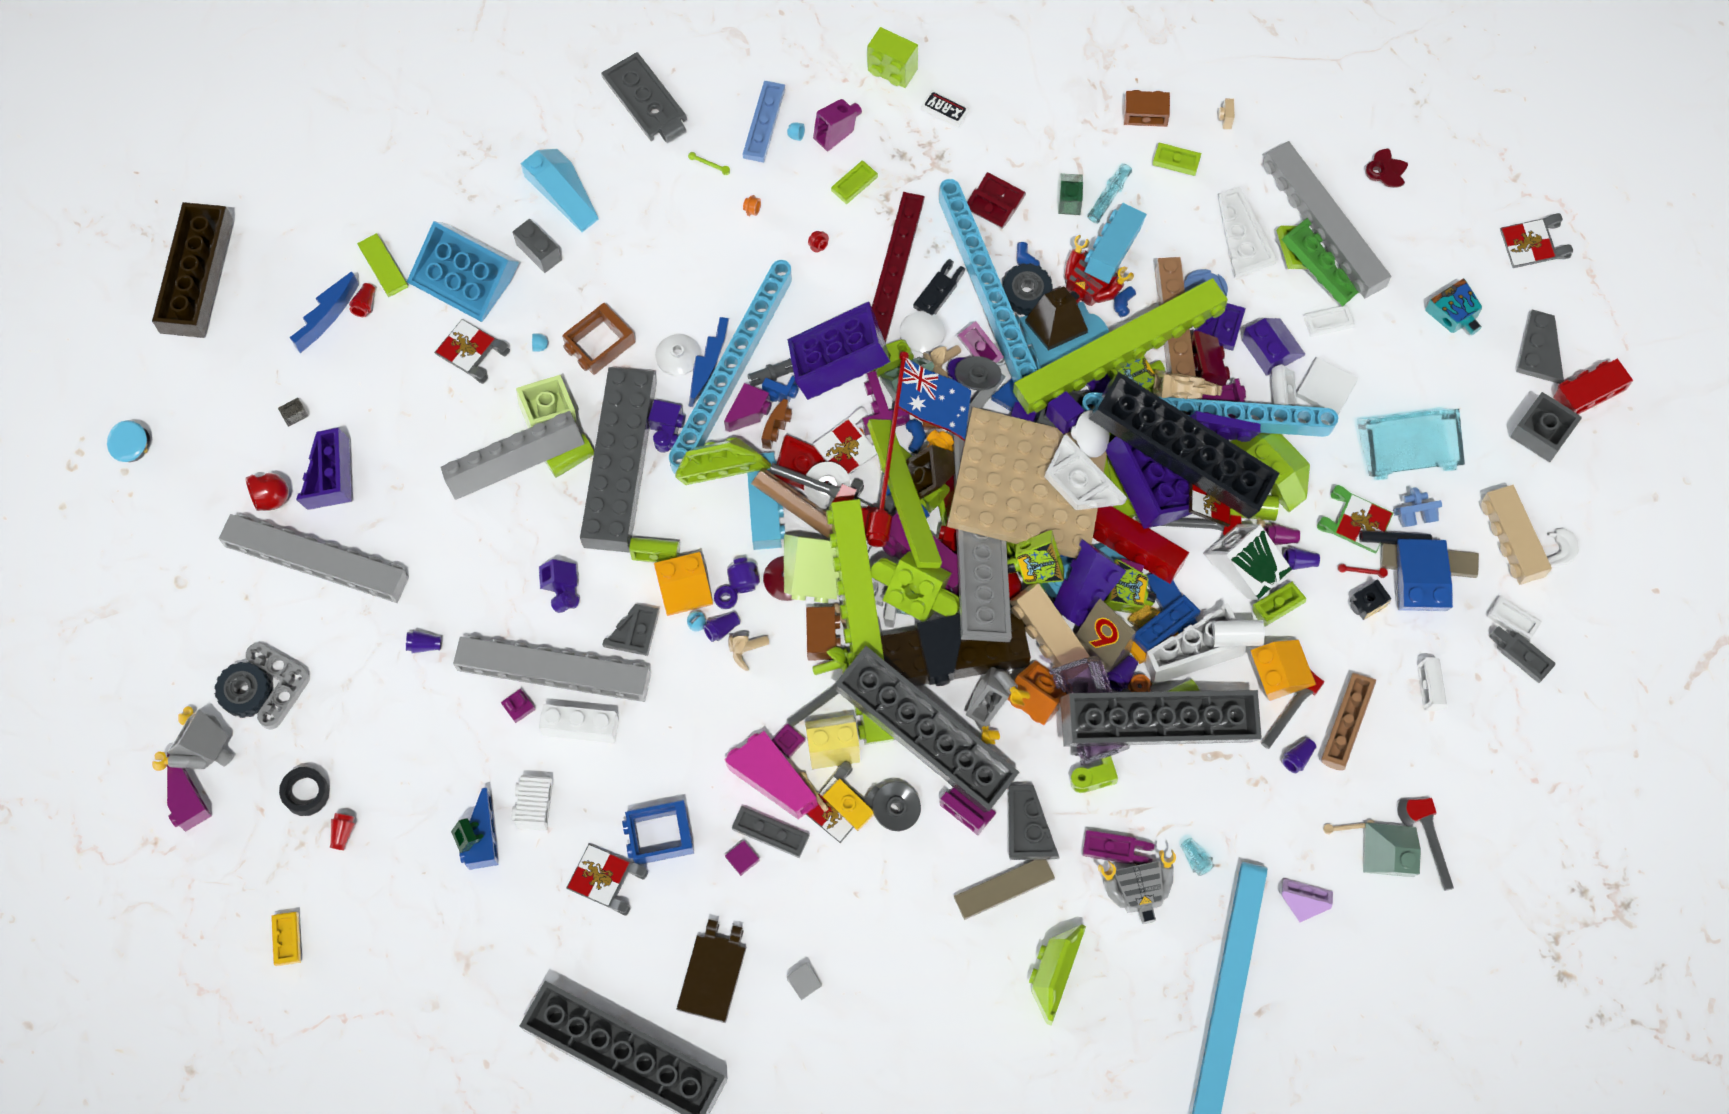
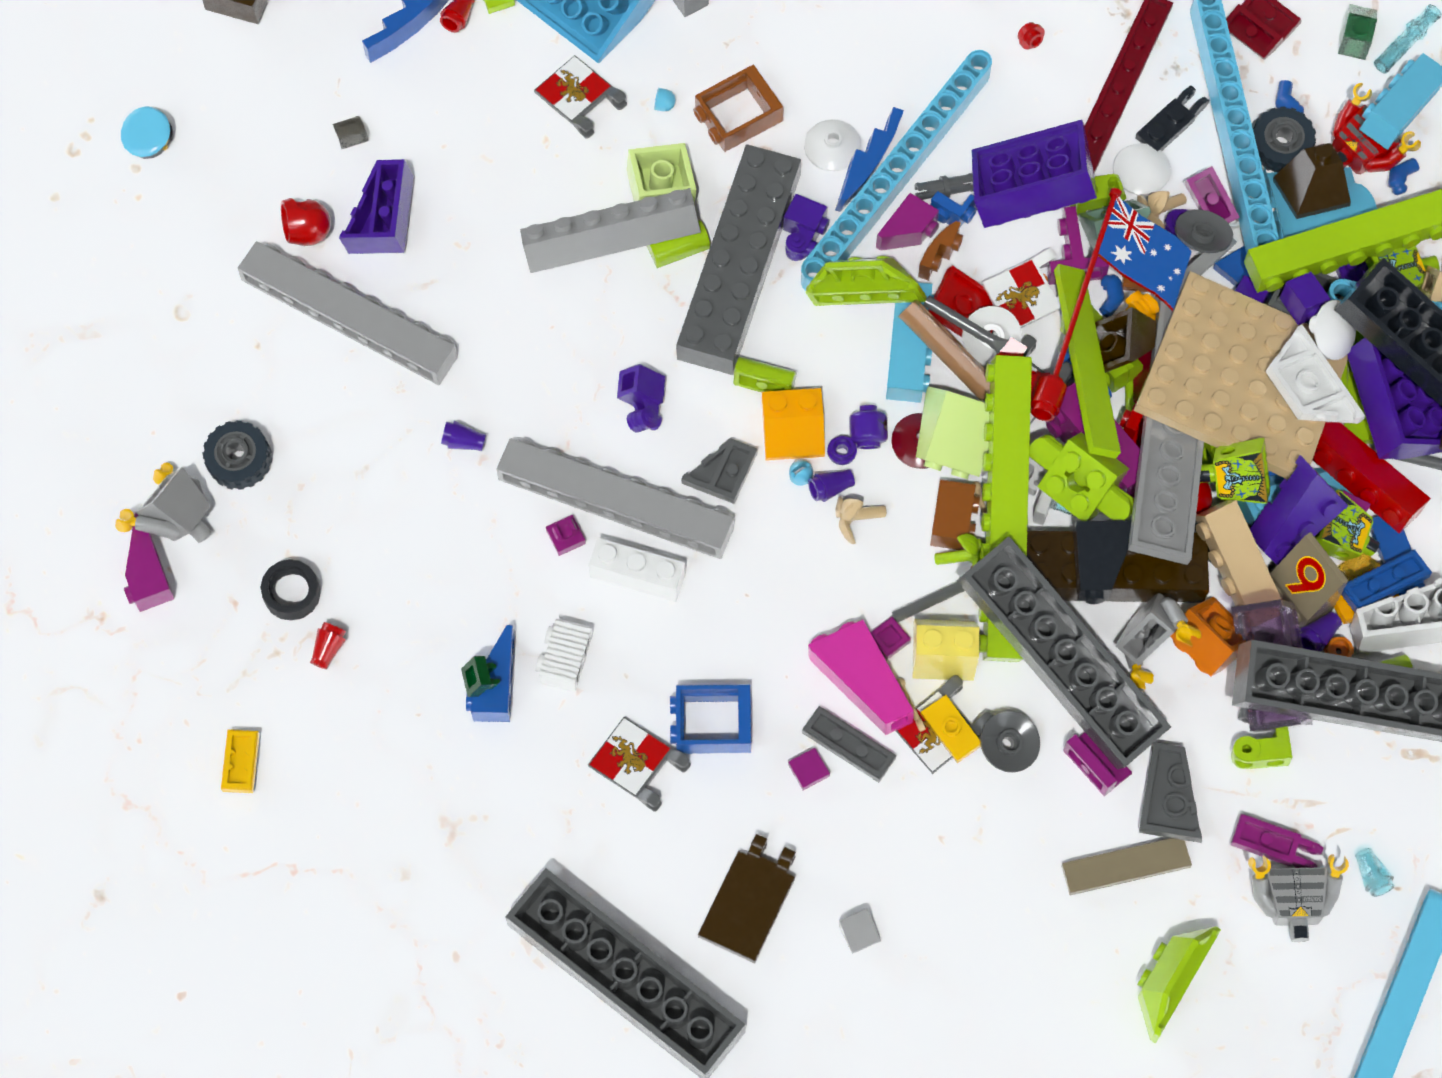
camera: 10 degrees right, 0 degrees up
(284, 676) = (288, 449): light grey beam -> none

